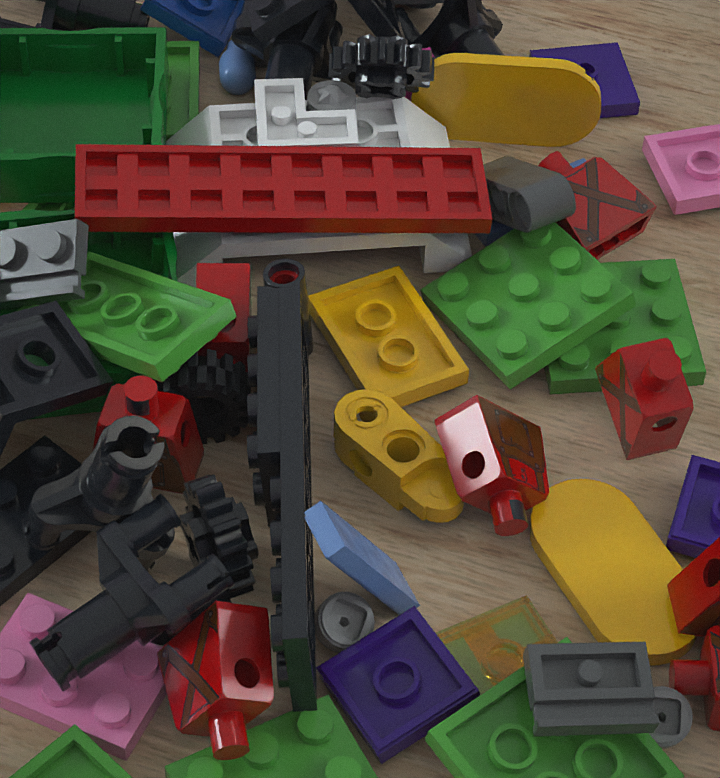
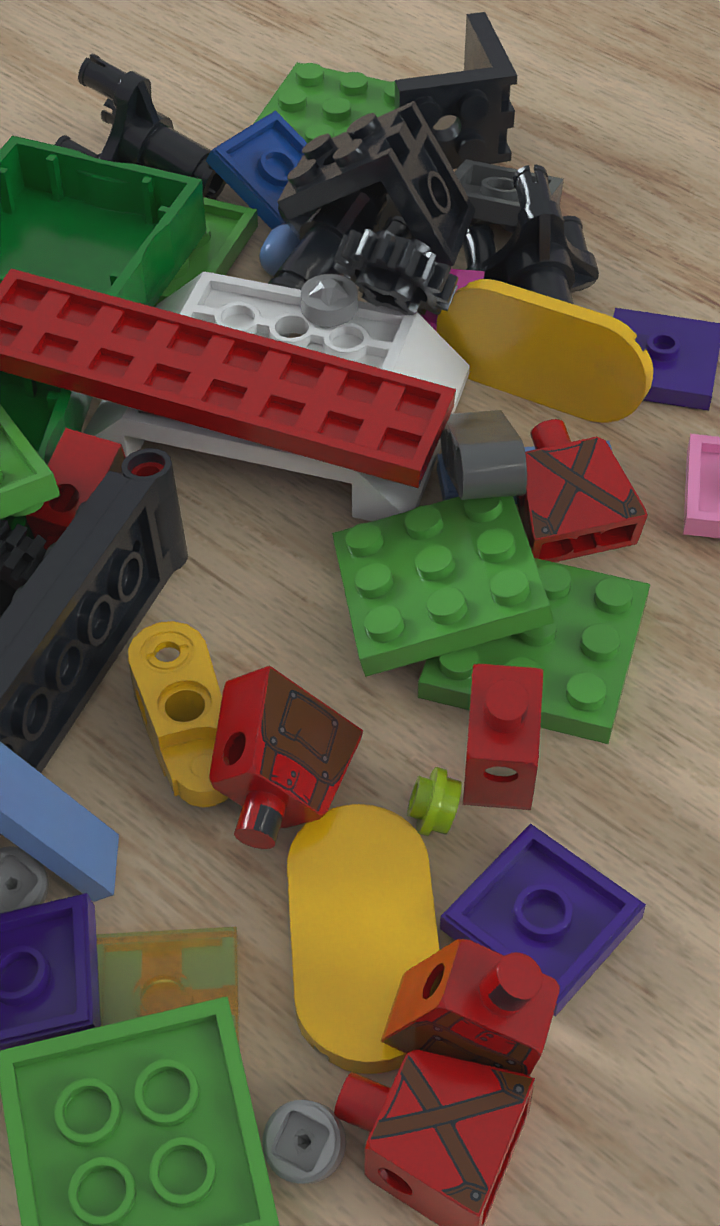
camera: 25 degrees right, 0 degrees up
(285, 122) = (266, 305): white plate -> none
(388, 337) = (261, 579): yellow plate -> none
(590, 688) = (205, 1074): dark grey plate -> none
(616, 461) = (434, 802): none -> lime plate

